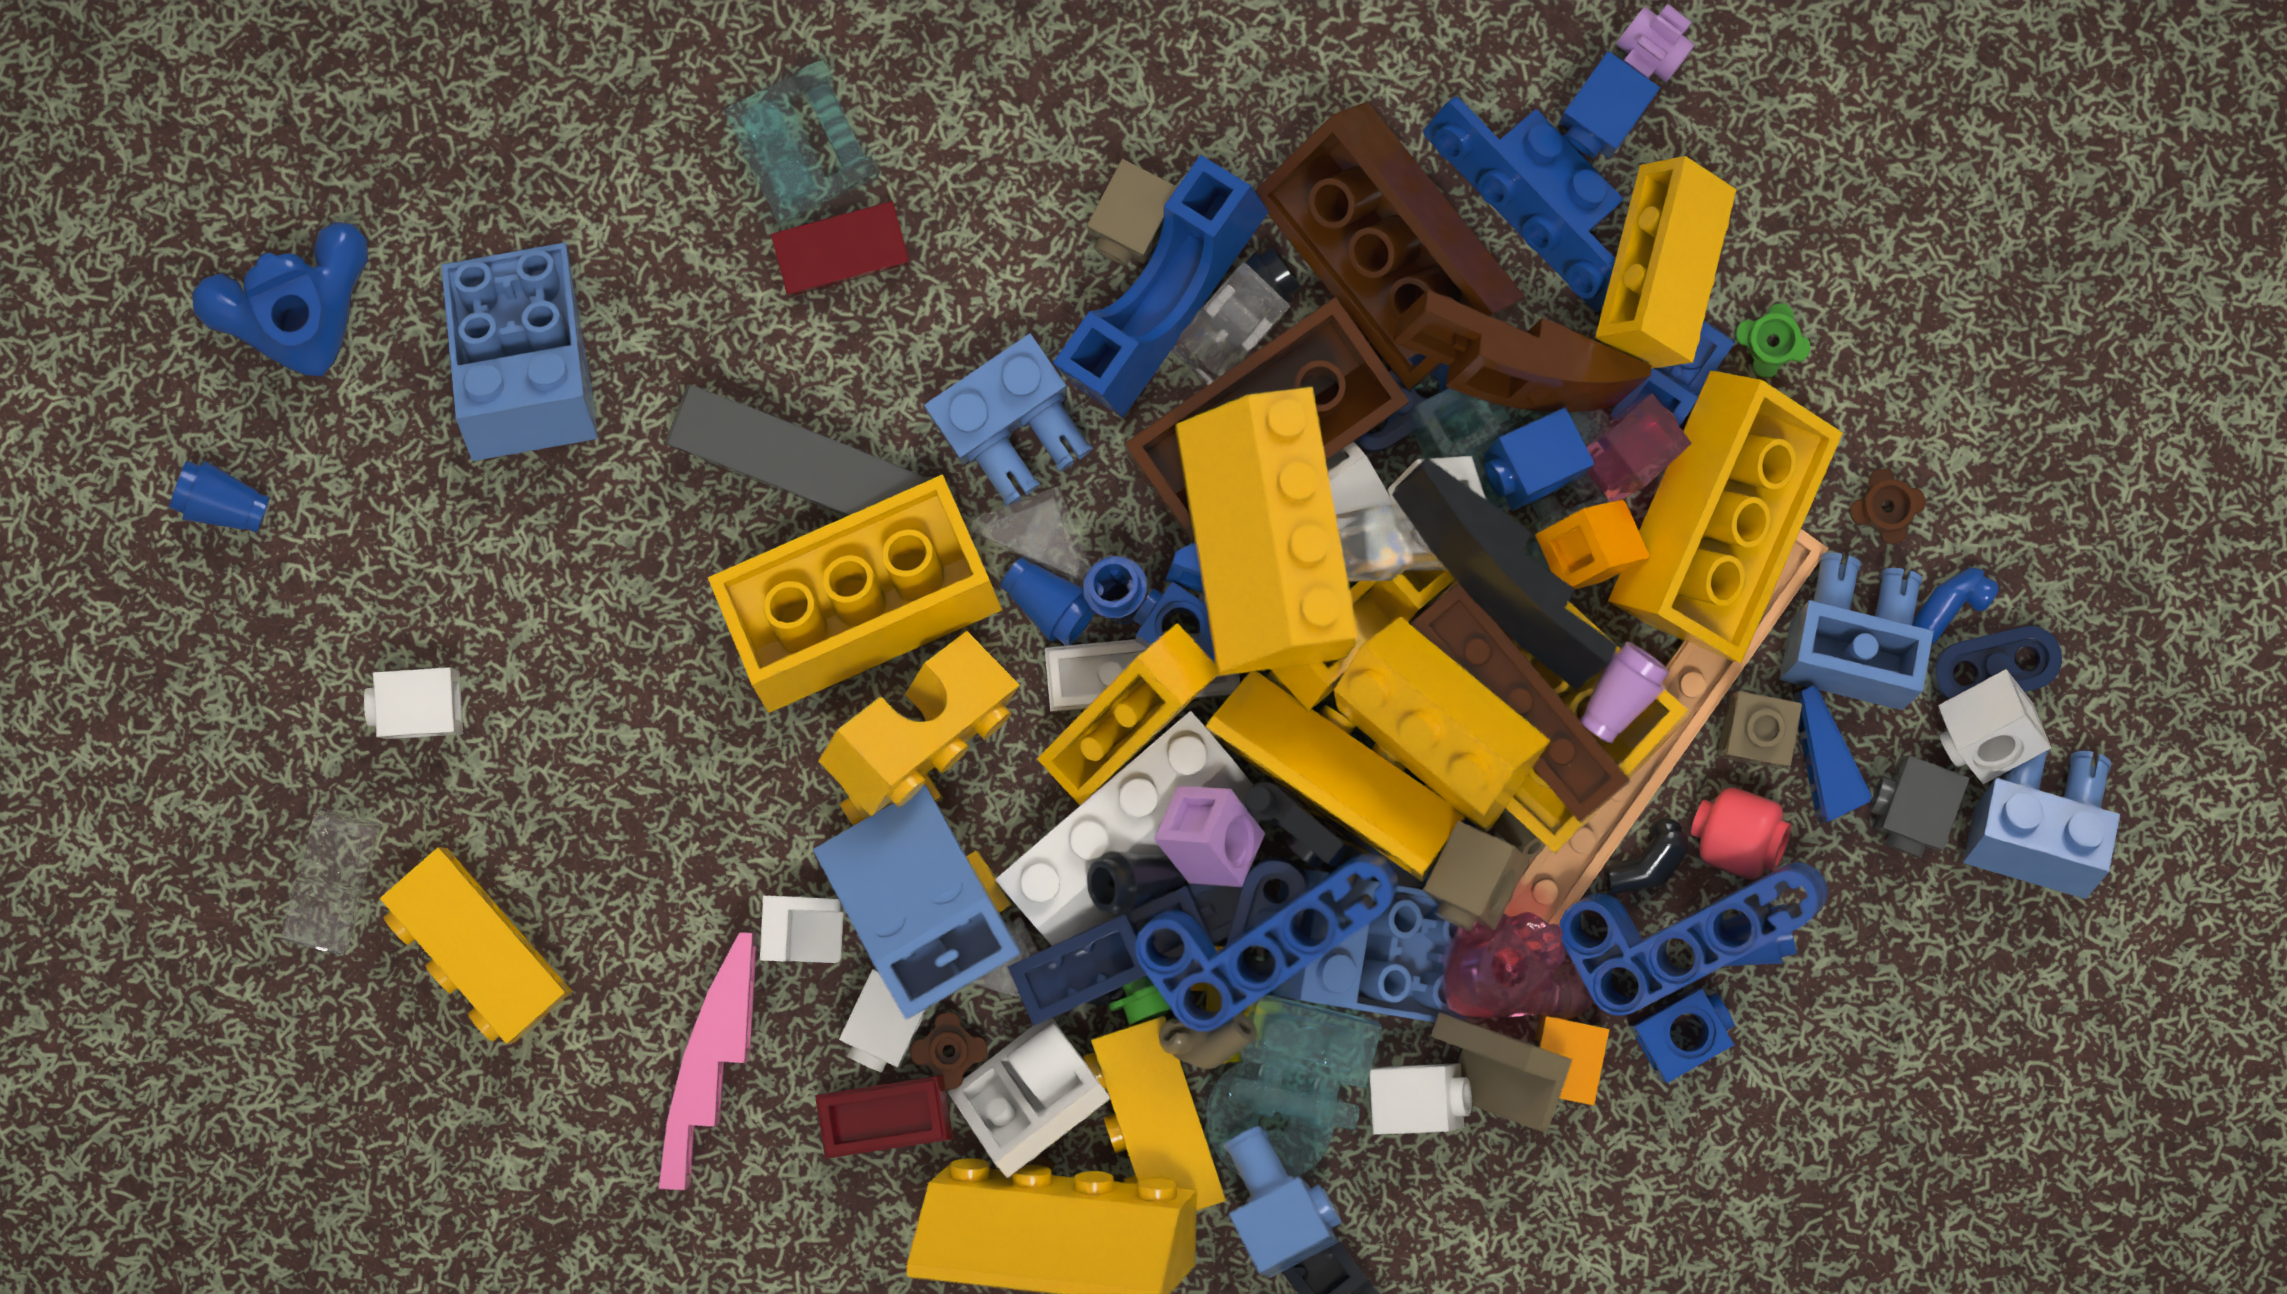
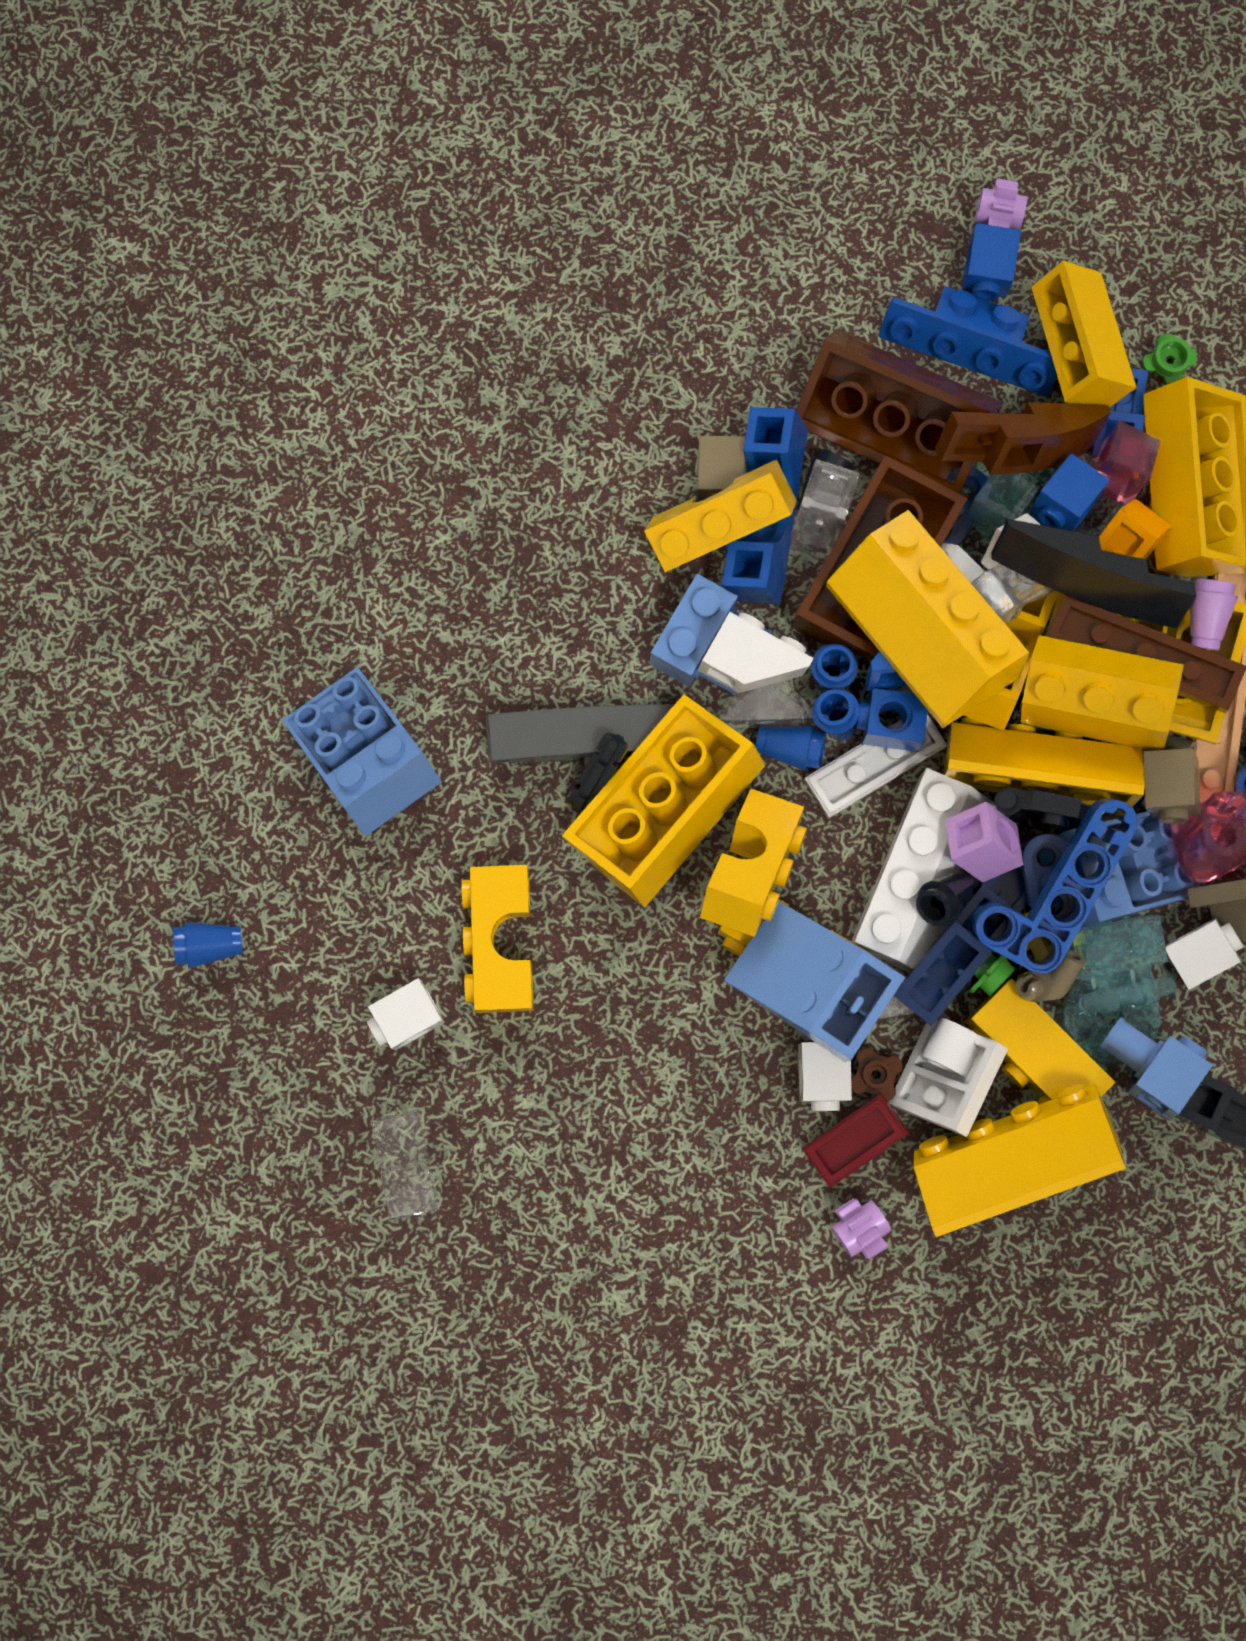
camera: 25 degrees left, 5 degrees down
(287, 306) = (195, 792): blue head -> none
(473, 947) = (523, 1161): yellow brick -> none
(587, 613) = (494, 897): none -> yellow arch
(718, 1037) = (718, 1141): bright pink slope -> none
(781, 150) = (472, 541): clear light blue plate -> none
(791, 519) = (598, 770): none -> black axle
(801, 929) = (737, 1040): white panel -> none
(836, 1224) = (861, 1228): none -> lavender gear
(840, 249) = (540, 585): dark red tile -> none
(1036, 471) = (751, 658): none -> white slope
(1125, 281) = (737, 511): none -> yellow arch
(1128, 714) = (890, 787): yellow brick -> none
(1146, 515) = (837, 660): none -> blue cone

